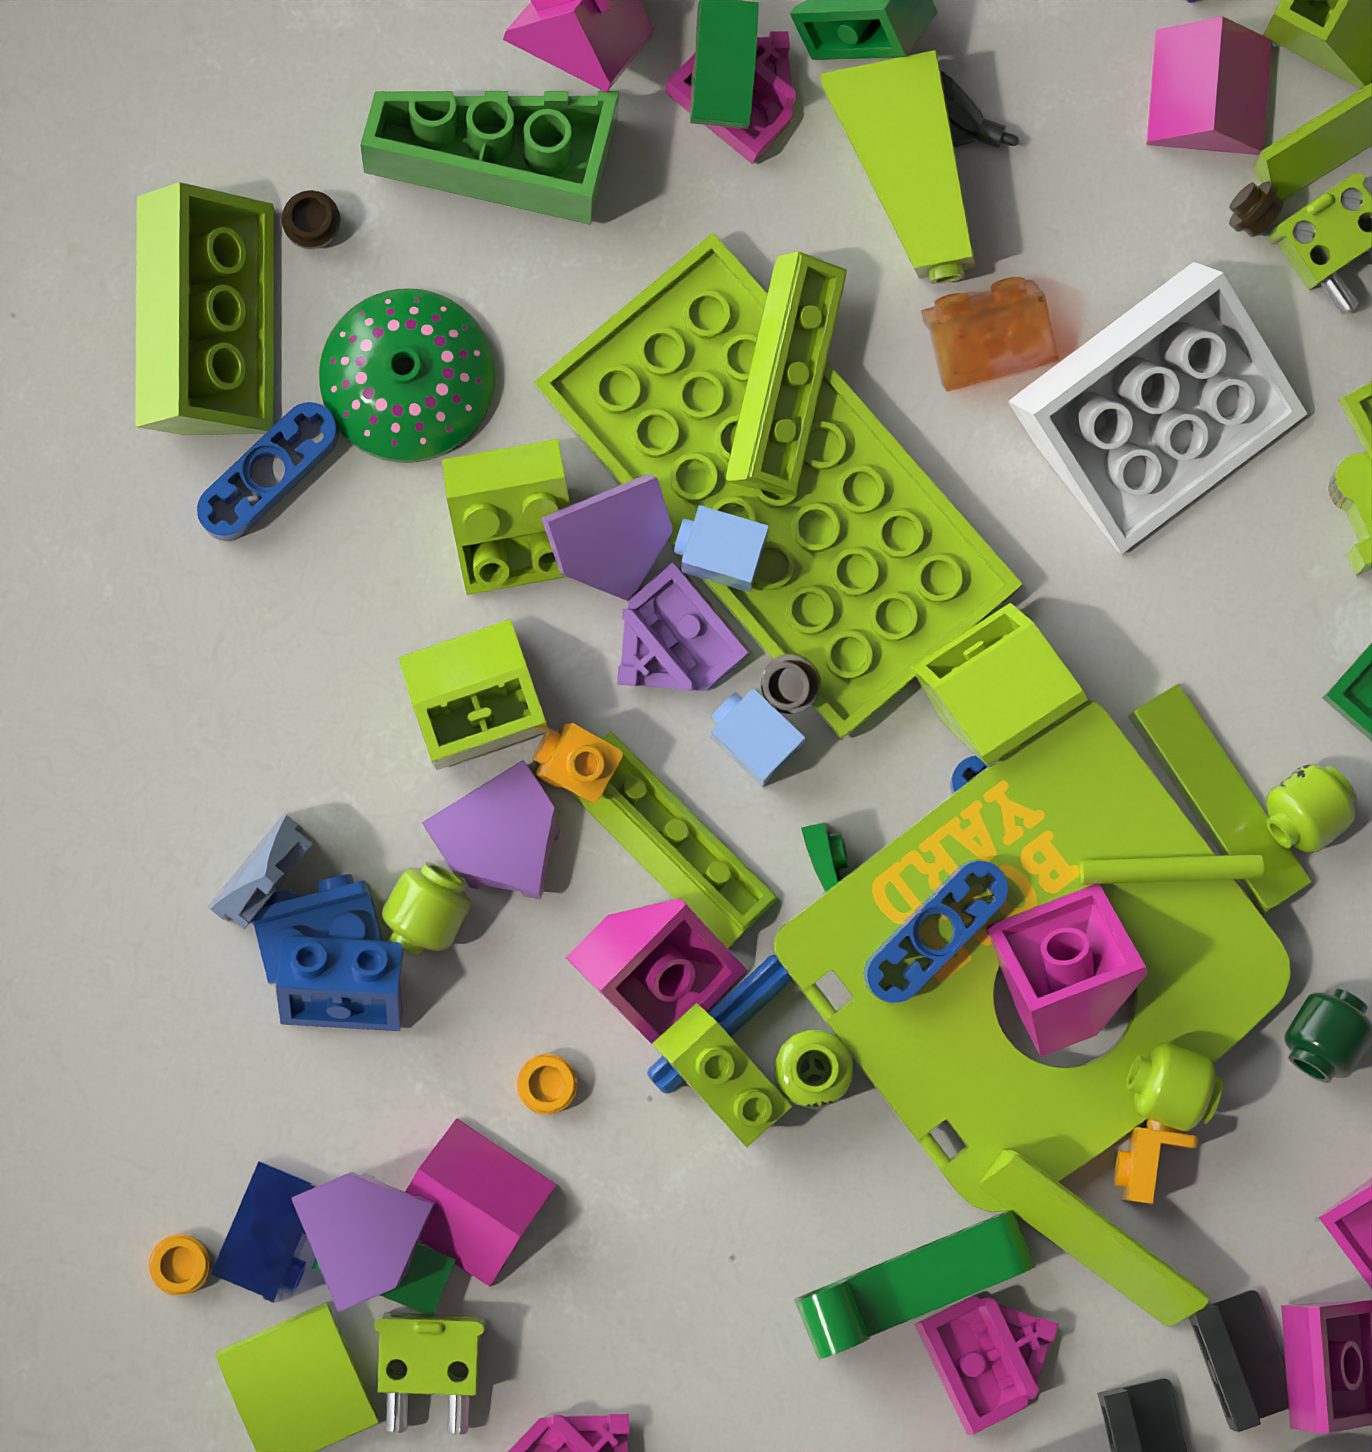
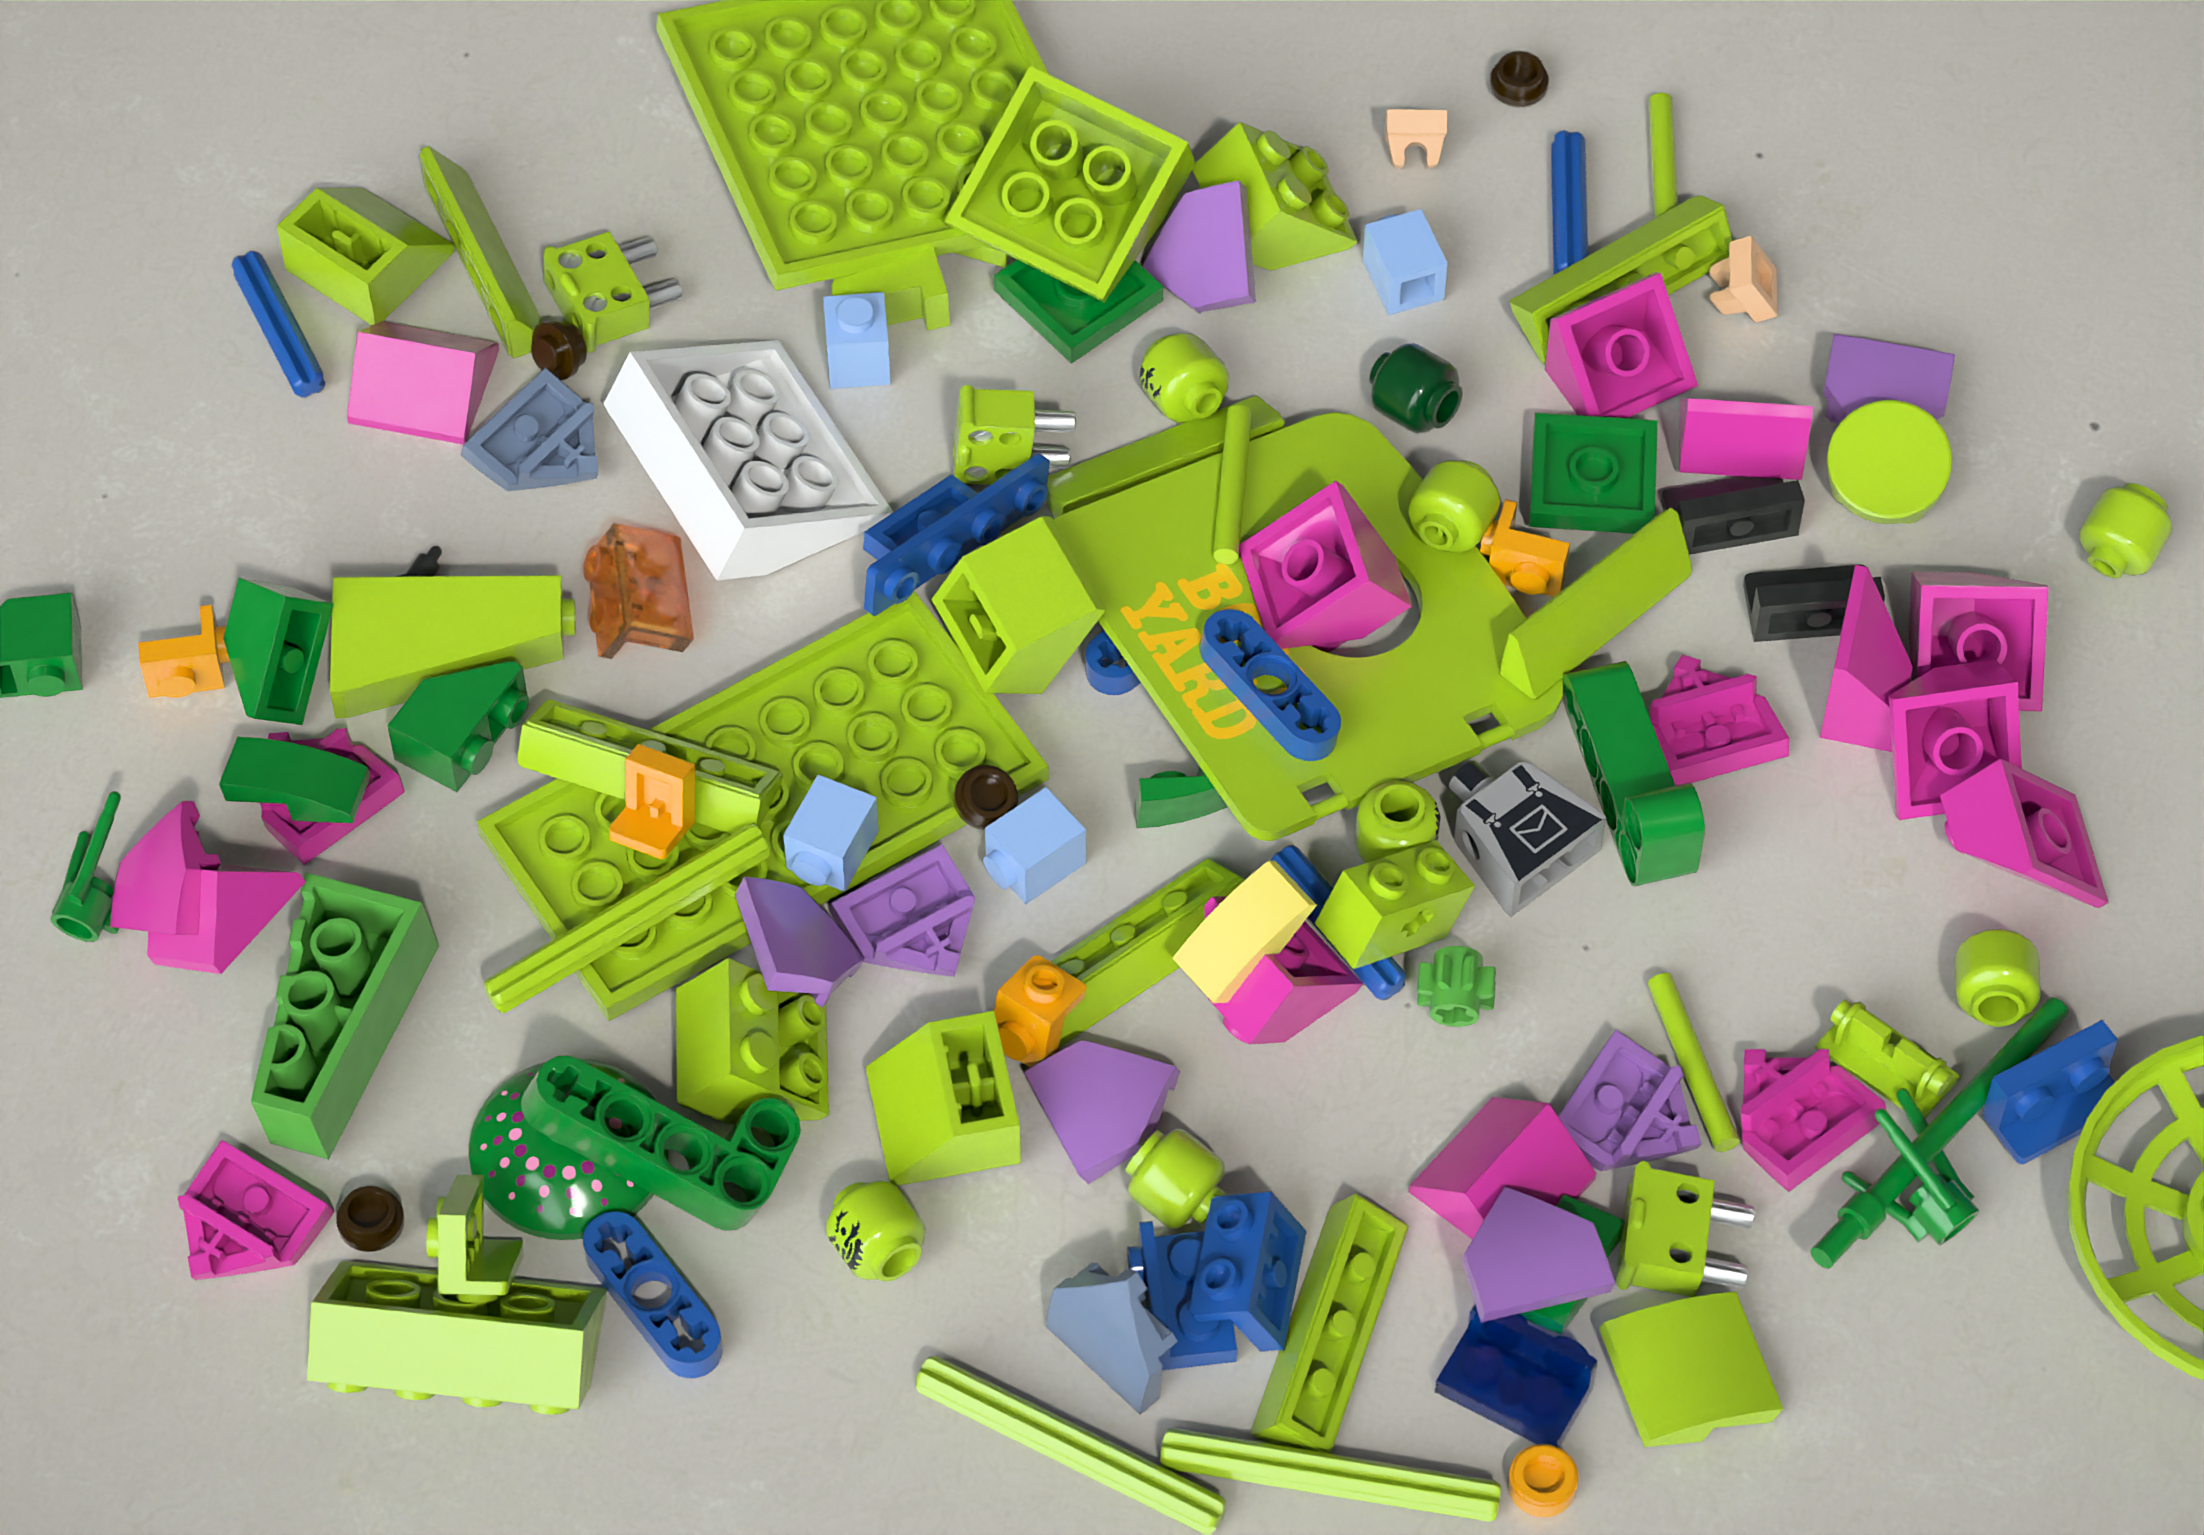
camera: 85 degrees left, 25 degrees down
(161, 1078) = (1330, 1474): none -> axle
(165, 850) = (1071, 1445): none -> axle
(269, 309) = (466, 1261): none -> lime bracket
(303, 115) = (247, 1217): none -> dark pink slope
(307, 1062) = (1330, 1326): none -> lime slope
(339, 651) = (875, 1230): none -> lime head
(395, 445) = (657, 1129): none -> green beam
(547, 1084) = (1382, 1094): light orange tile -> none
(557, 1307) = (1629, 1108): none -> medium lavender slope
(616, 1367) = (1693, 1062): none -> lime bar
(620, 383) = (626, 918): none -> lime axle
(652, 938) = (1242, 929): none -> light yellow slope
(654, 1140) = (1456, 986): none -> bright green gear
(726, 386) = (657, 802): none -> light orange bracket
(819, 193) = (456, 720): none -> green slope
(836, 1184) = (1522, 830): none -> light grey torso
(1094, 597) = (944, 526): none -> blue bracket
(1156, 210) = (537, 438): none -> sand blue slope
(1202, 645) = (998, 433): none -> lime piece
(1260, 1220) = (1593, 473): none -> green plate
(1304, 487) = (857, 340): none -> light blue brick

